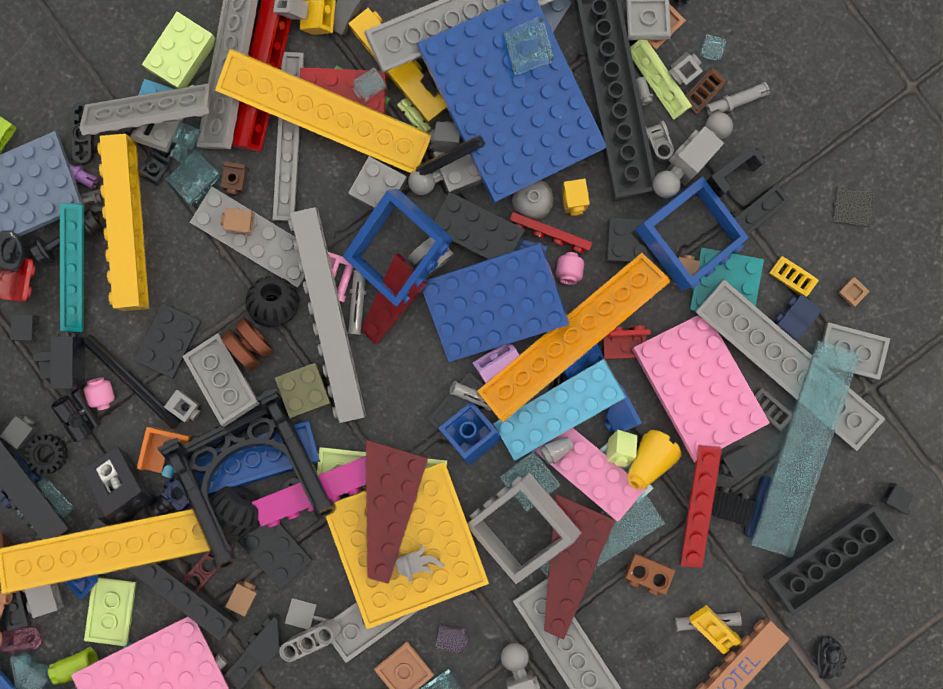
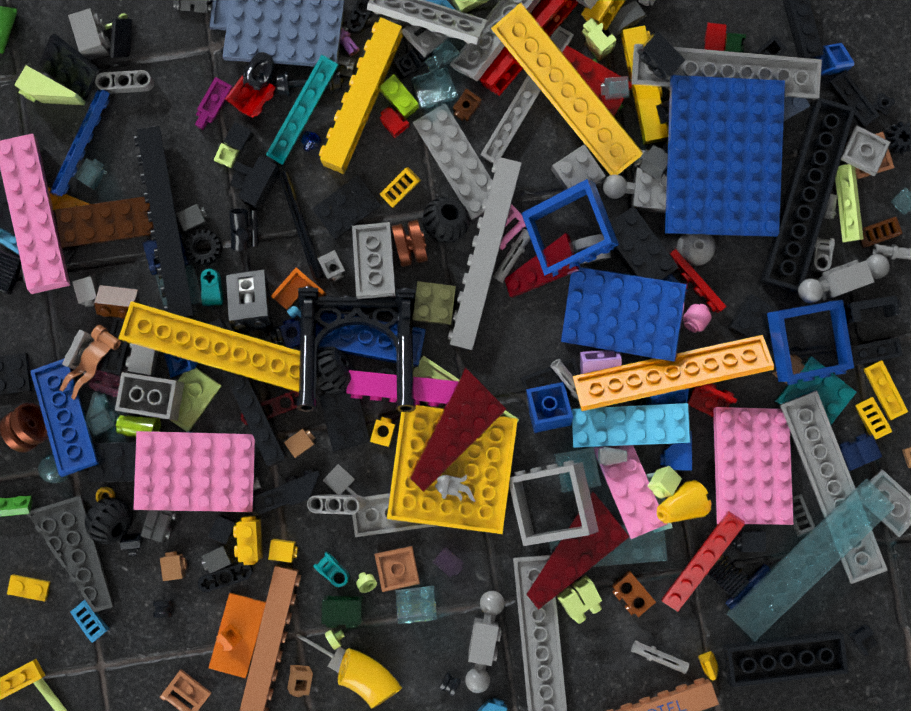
camera: 25 degrees right, 0 degrees up
(22, 351) = (226, 155): none -> yellowish green tile
(68, 632) = (149, 396): none -> light grey brick
(76, 493) = (211, 290): none -> teal piece
(98, 293) = (310, 140): none -> clear blue tile
(99, 393) = (270, 221): bright pink head -> none
(162, 204) = (399, 96): none -> lime brick
(170, 231) = (393, 121): none -> red brick
(203, 290) = (395, 182): none -> yellow slope
(238, 221) = (453, 141): medium nougat brick -> none
(314, 552) = (376, 438): none -> yellow brick
(329, 48) = (597, 41): none -> yellowish green hips
(395, 30) = (660, 56): none -> black brick
(413, 115) = (635, 130): yellowish green axle -> none
(451, 155) = (651, 178): black axle -> none
(528, 45) = (760, 123): clear light blue plate -> none
(575, 197) = (731, 262): yellow brick -> none
(608, 604) = (577, 606): none -> yellowish green hips
(685, 68) = (874, 206): light grey brick -> none
(714, 629) = (663, 665): yellow plate -> none
(760, 603) = (709, 665): none -> yellow slope
(791, 242) = (885, 390): none -> yellow plate

